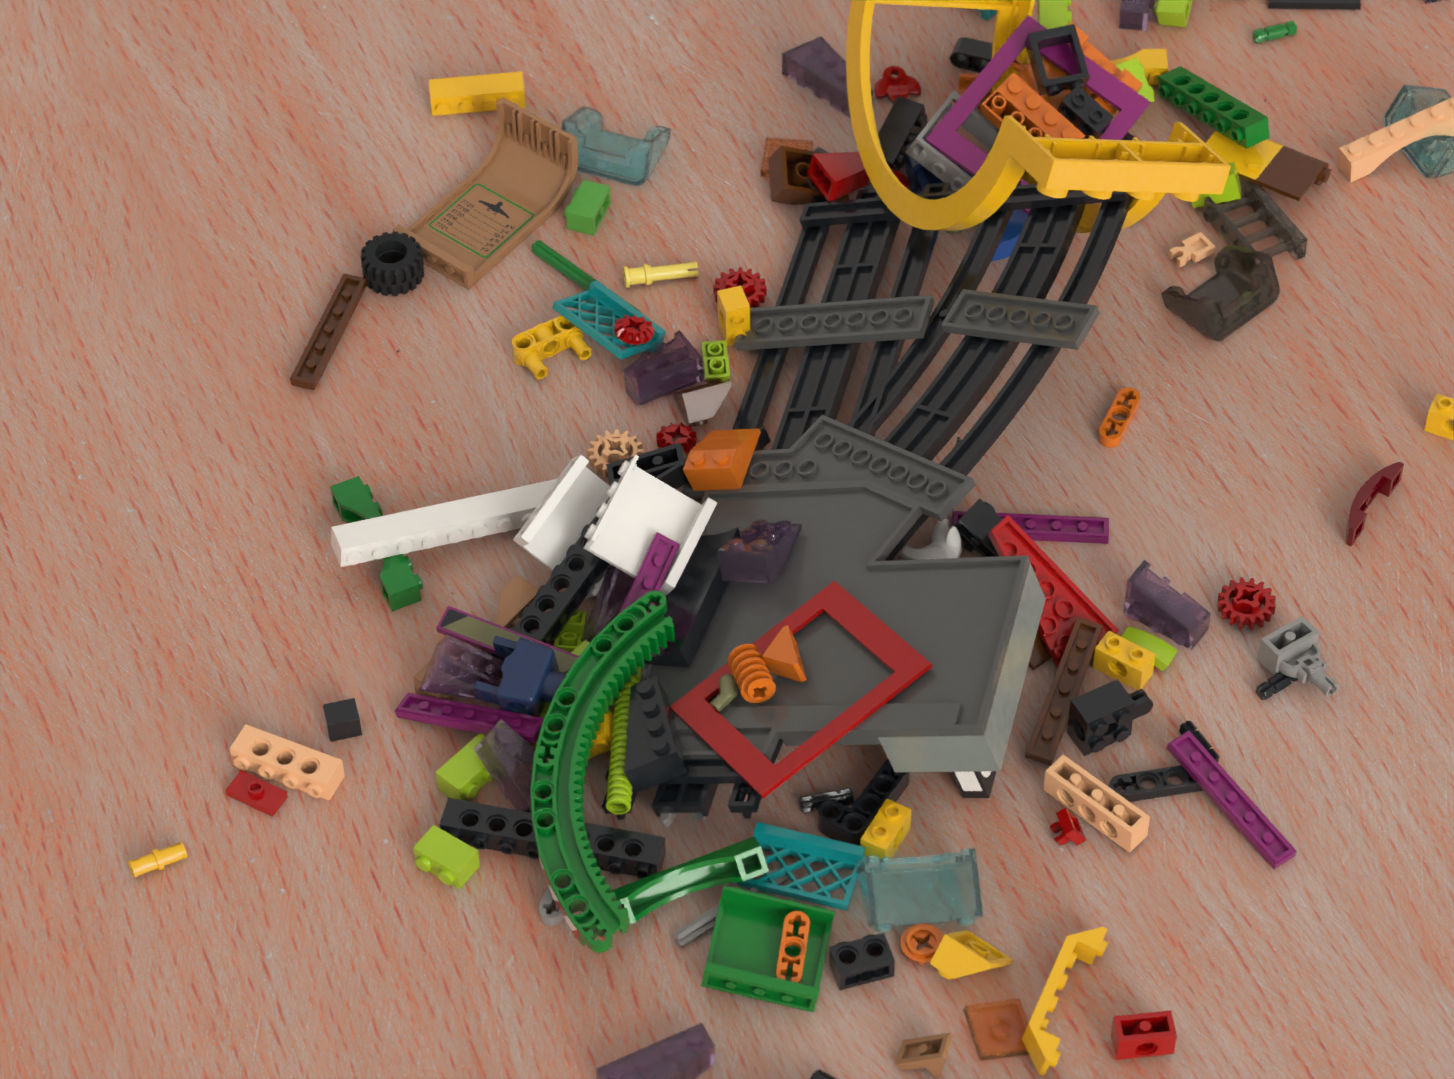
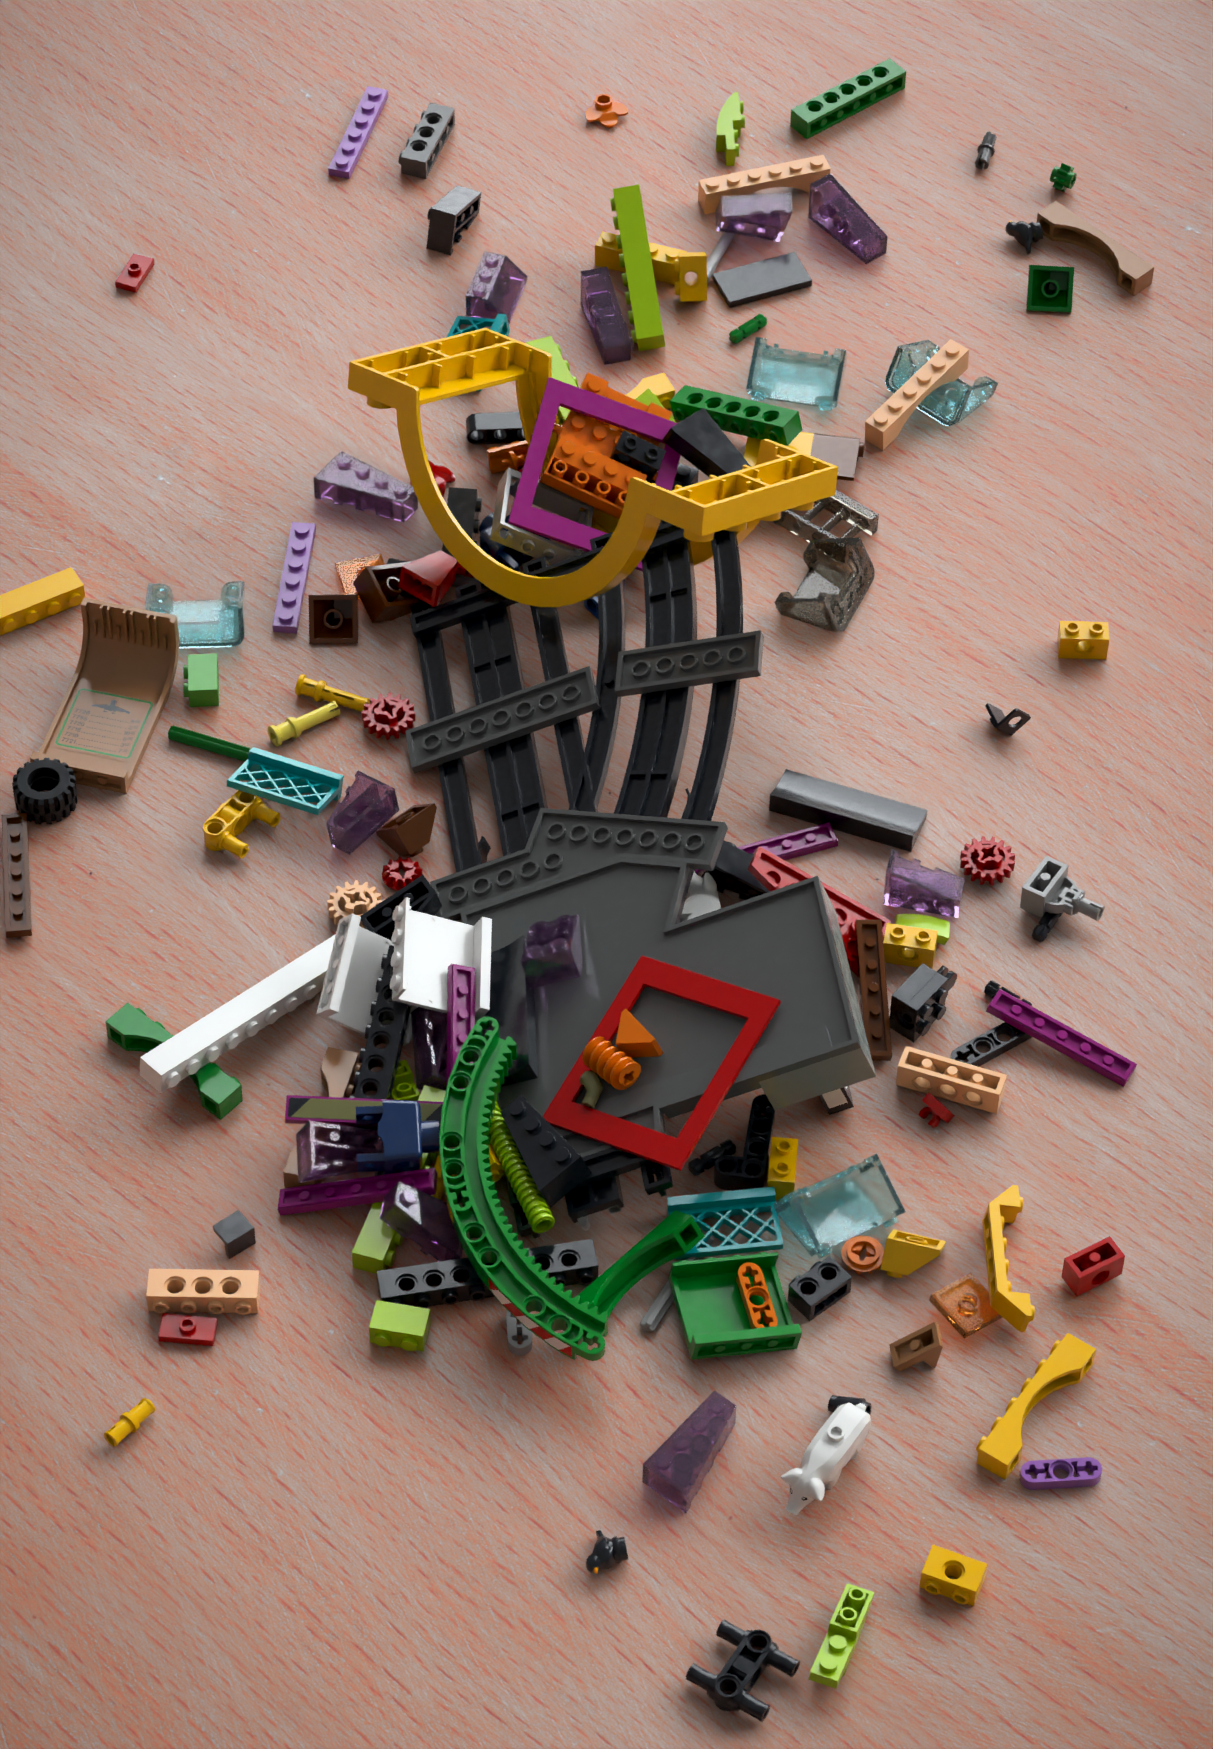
camera: 25 degrees left, 0 degrees up
(631, 335) = (316, 789): red gear -> none
(690, 249) = (321, 691): none -> yellow pin
(715, 360) = (405, 790): lime slope -> none
(721, 459) = (464, 878): orange slope -> none
(723, 140) = (294, 577): none -> medium lavender plate
(733, 313) = (399, 740): yellow brick -> none
(737, 186) = (333, 618): none -> reddish brown slope
(1050, 38) = (580, 424): black window -> none
(1118, 408) = (785, 735): orange beam -> none
(1134, 512) = (847, 810): none -> arch
(1151, 114) = (705, 445): none -> black slope
(1195, 248) = (778, 552): light nougat plate -> none
(1295, 87) = (796, 375): none -> clear light blue windscreen
(1331, 471) = (1001, 722): none -> black bracket
(1381, 482) = (1047, 717): dark red slope -> none

